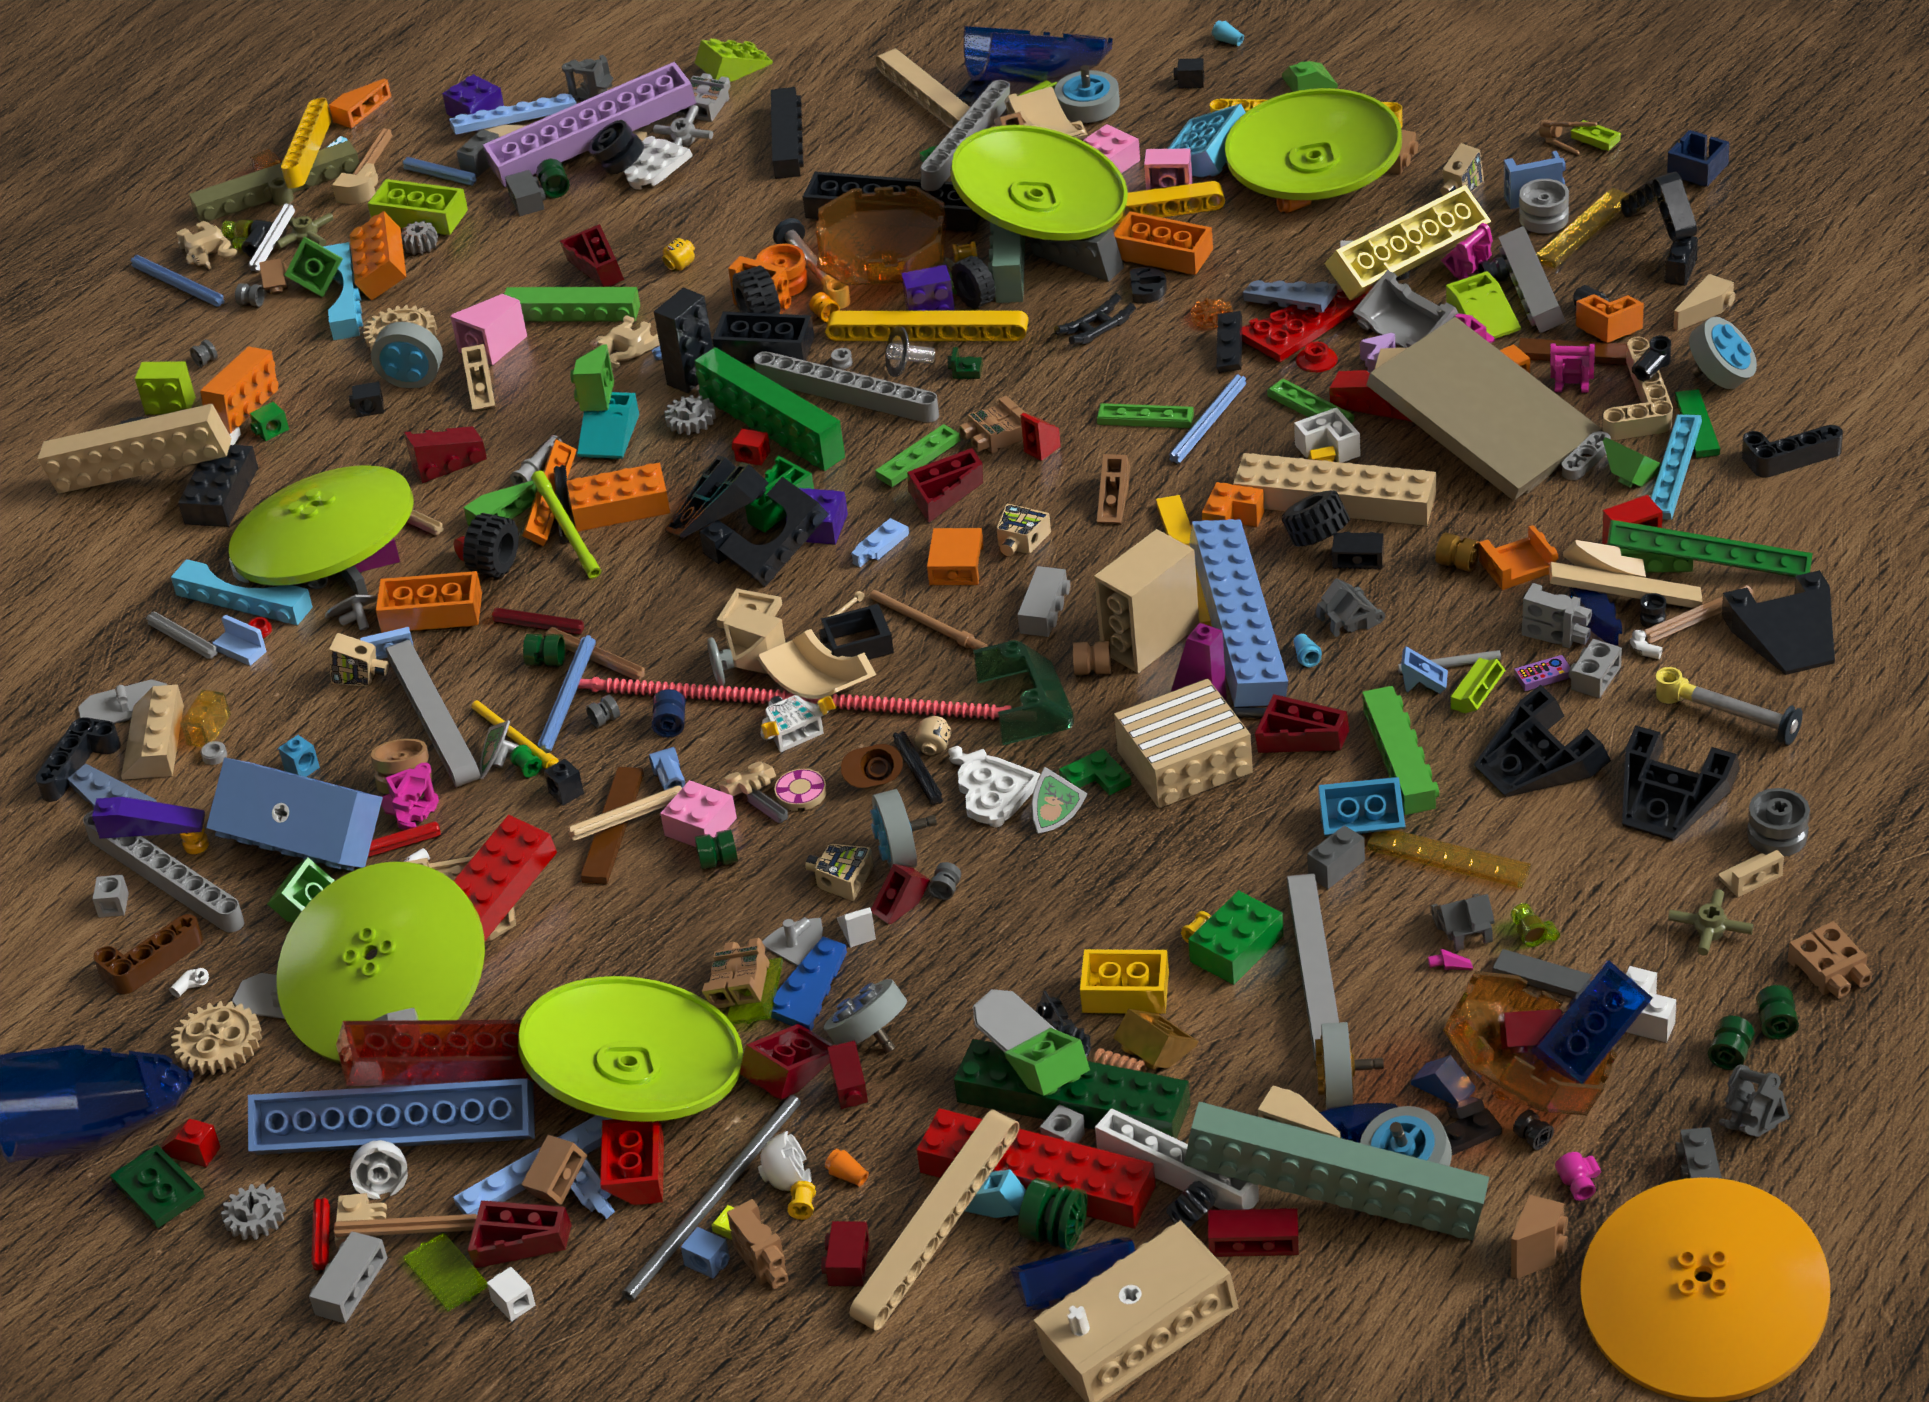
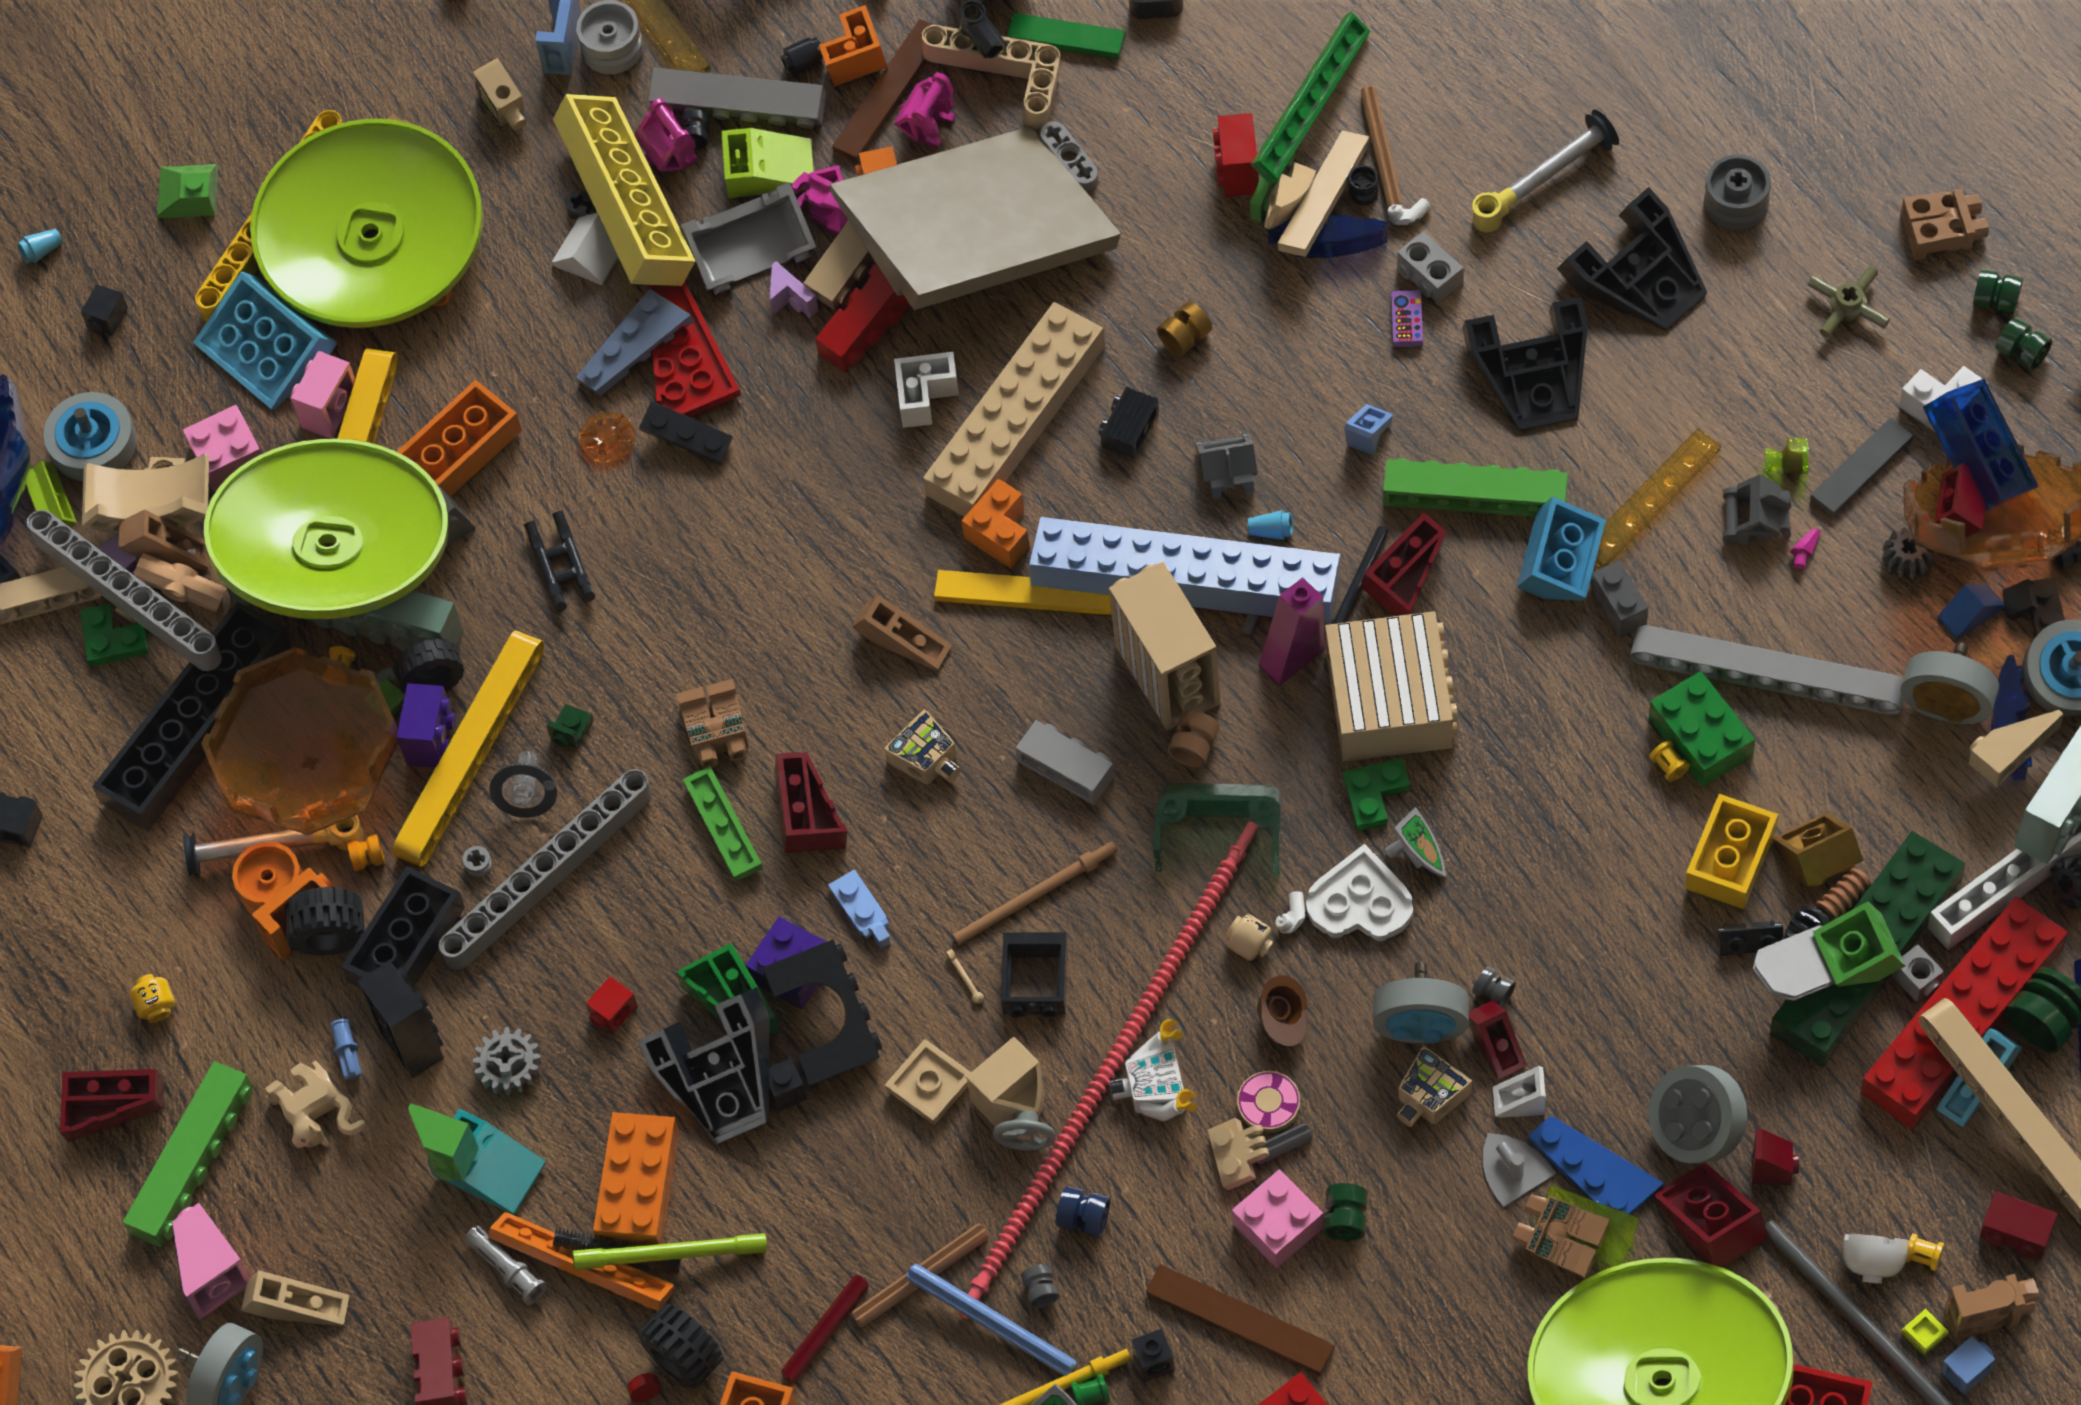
camera: 70 degrees left, 20 degrees up
(503, 503) = (583, 1337): bright green slope -> none
(540, 649) = (899, 1325): dark green wheel -> none
(622, 814) = (1241, 1296): tan axle -> none
(667, 768) = (1168, 1236): medium blue piece -> none
(770, 409) = (561, 963): green brick -> none
(810, 668) = (1094, 1032): tan panel -> none
(845, 1167) = (1892, 1197): orange cone -> none
(918, 768) = (1289, 968): black axle -> none
(954, 556) = (938, 829): orange panel -> none
(1039, 436) = (766, 681): red slope -> none
(1145, 415) = (766, 563): bright green tile -> none
(1147, 284) = (529, 494): black piece -> none
(1207, 419) = (810, 500): medium blue axle -> none
(1302, 400) = (837, 390): bright green tile -> none
(1315, 518) = (1056, 439): black tyre -> none
(1316, 358) = (750, 367): red piece -> none
(1323, 454) = (949, 406): yellow tile -> none
(1462, 659) = (1348, 397): light grey bar -> none
(1476, 685) = (1403, 385): lime piece -> none
(1518, 560) = (1216, 275): orange panel -> none
(1554, 617) = (1344, 276): light grey hips -> none
(1629, 464) = (1114, 116): bright green slope -> none
(1675, 463) = (1135, 82): medium azure tile -> none
(1753, 873) = (1787, 243): tan panel -> none
(1789, 630) = (1452, 76): black wedge -> none

